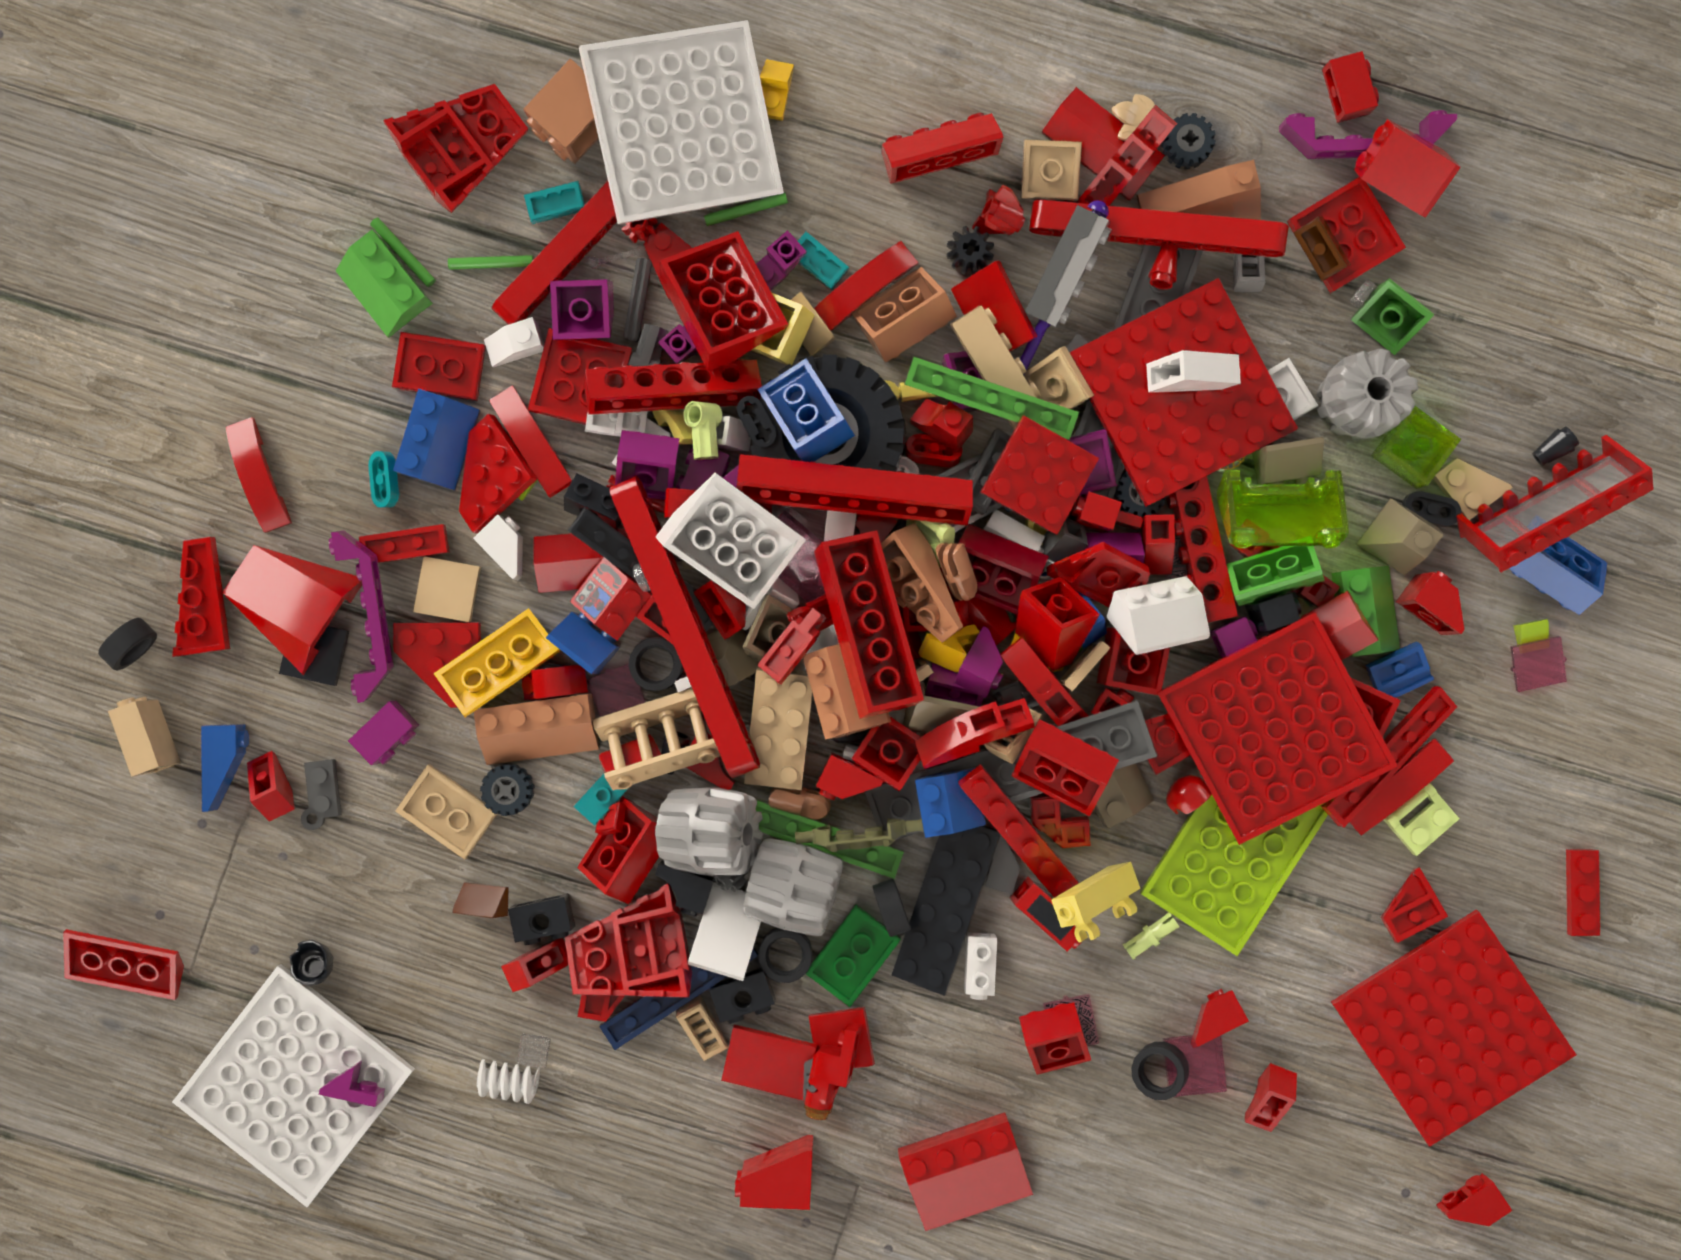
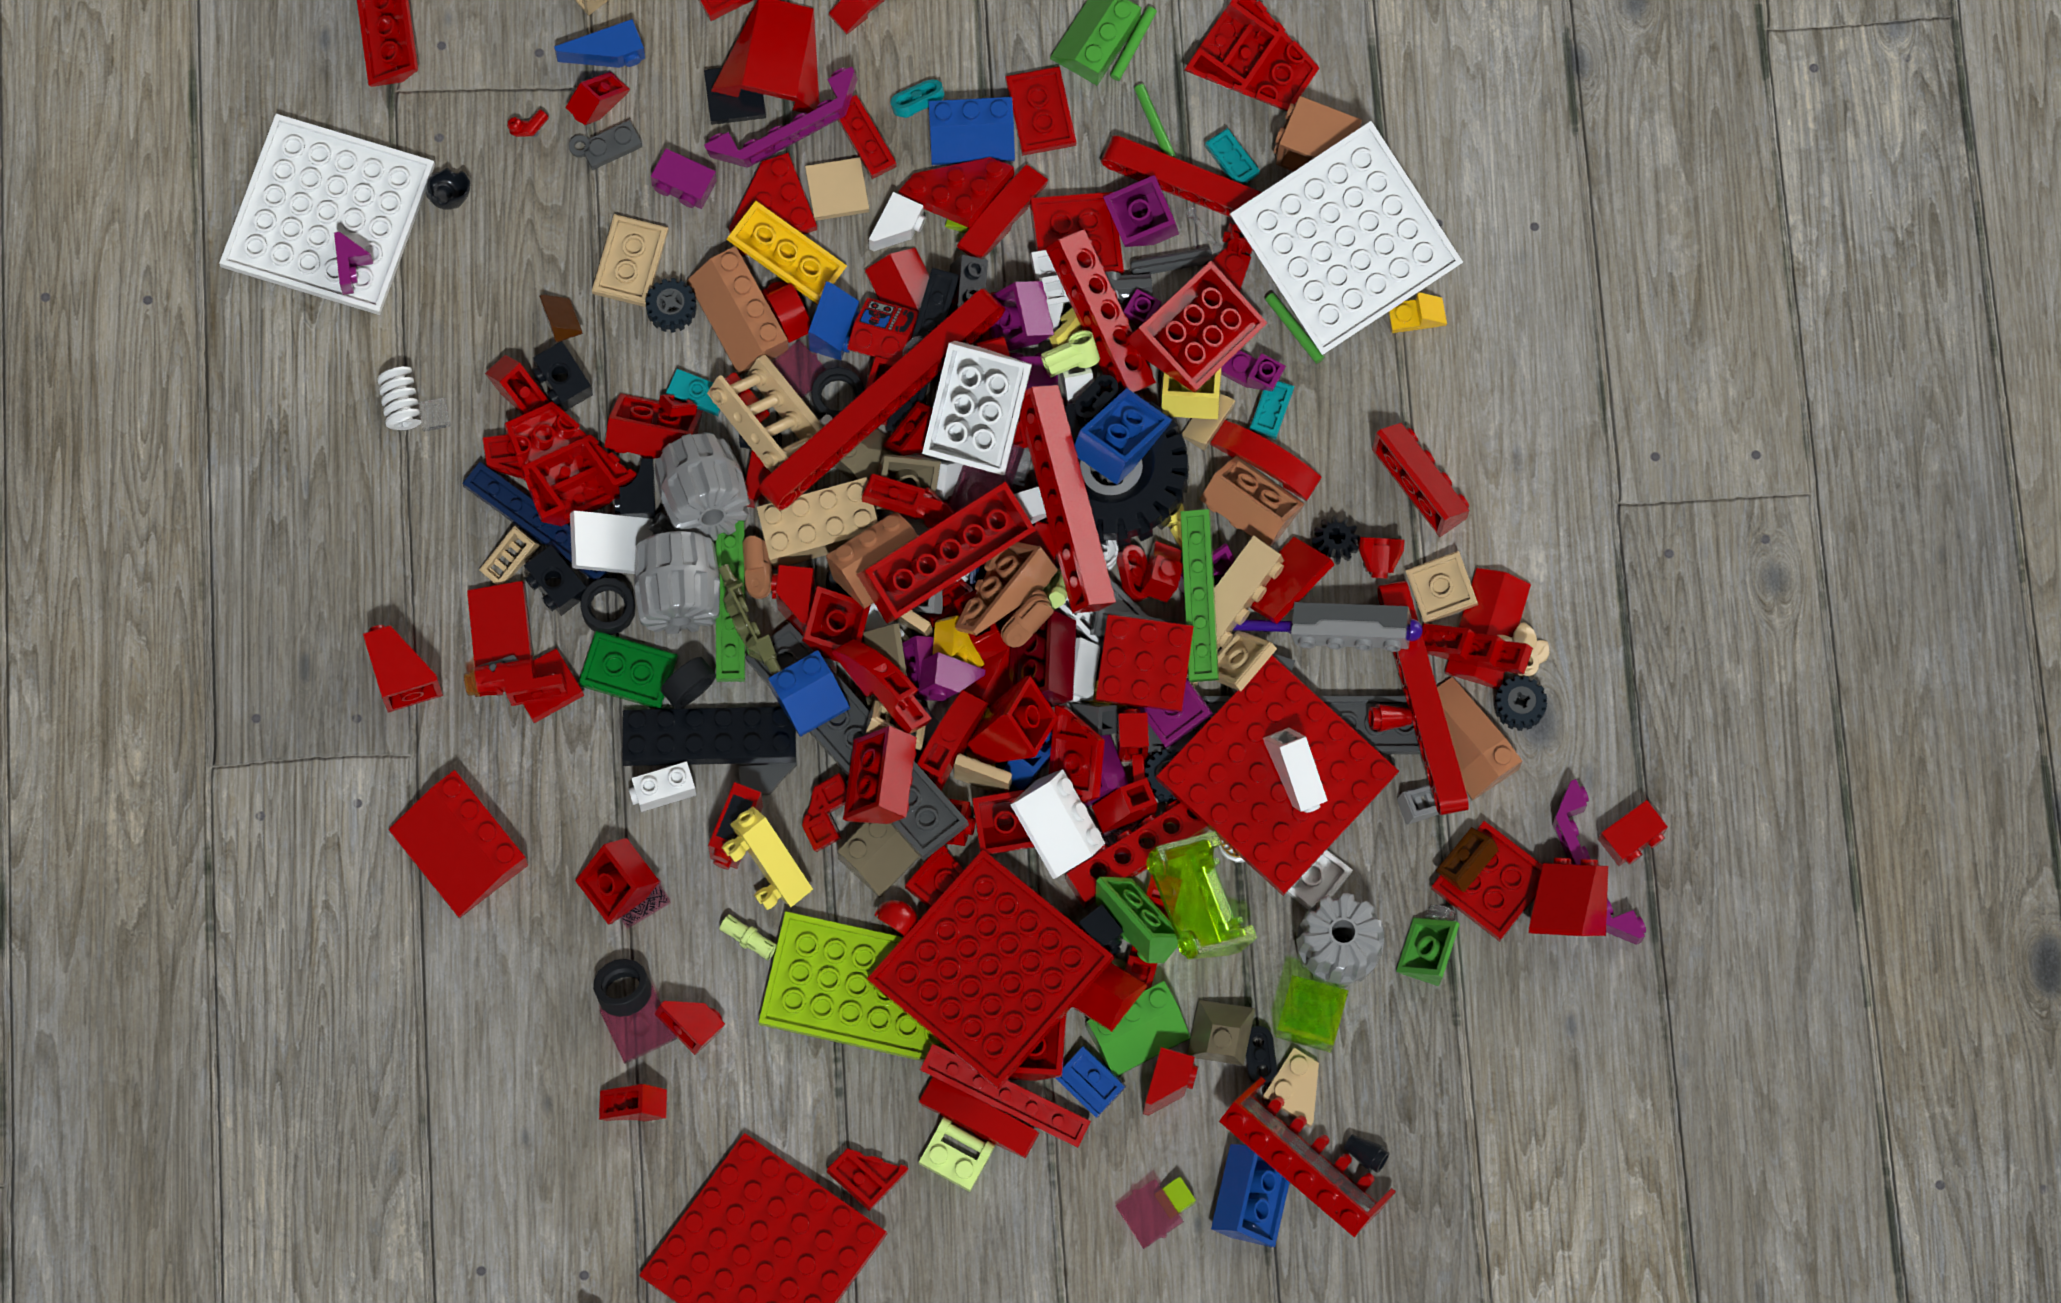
camera: 60 degrees right, 15 degrees down
(275, 863) = (527, 128): none -> red arm
(514, 342) = (1089, 168): white slope -> none
(1017, 831) = (807, 761): red plate -> none
(1234, 636) = (1068, 905): magenta brick -> none
(1289, 461) = (1251, 897): dark tan slope -> none

